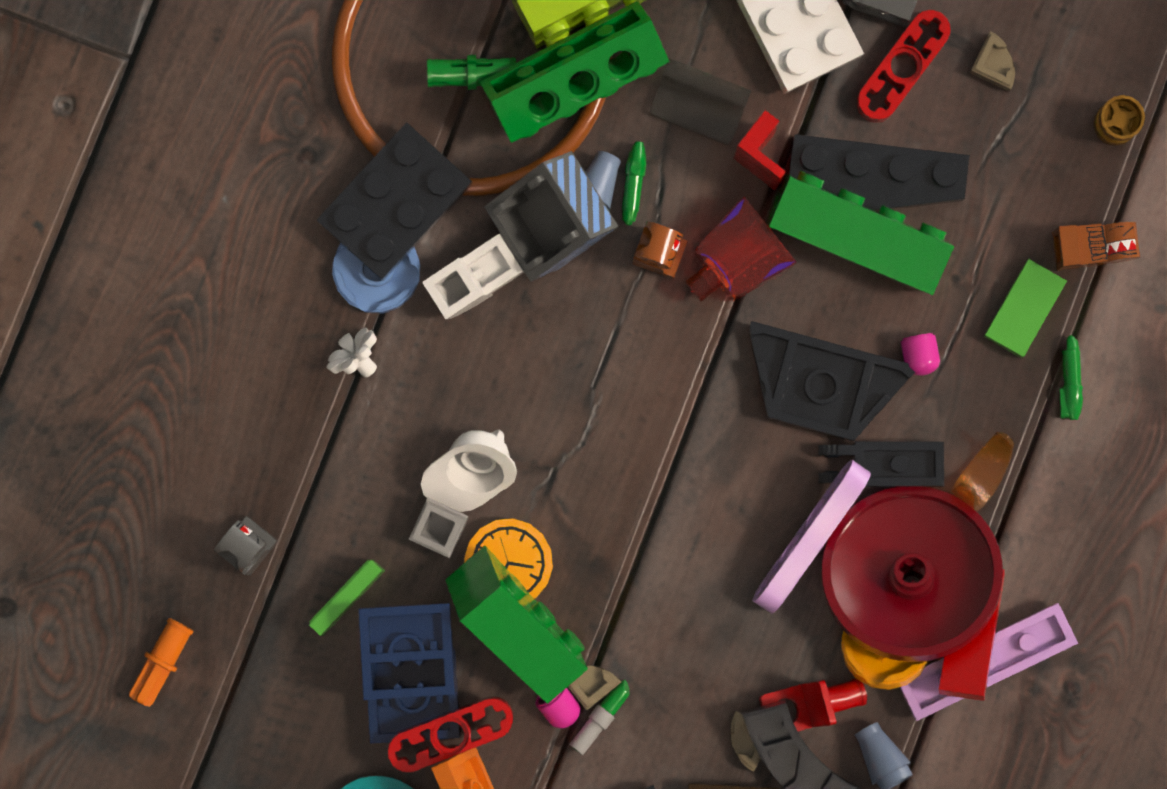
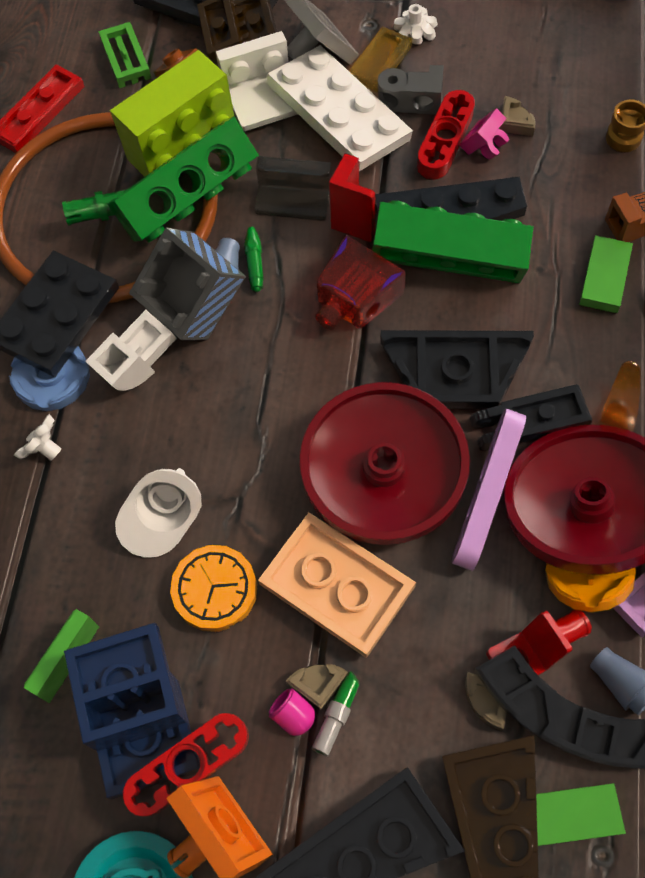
camera: 10 degrees left, 20 degrees down
(438, 527) = (141, 568): light grey brick -> none
(515, 625) = (233, 637): green wedge -> none
(632, 592) = (337, 584): none -> light nougat plate
(660, 249) = (283, 295): dark orange leg -> none
(713, 479) = (384, 463): none -> dark red dish
(921, 353) = (533, 321): dark pink piece -> none
(946, 83) = (484, 134): none -> dark pink tile

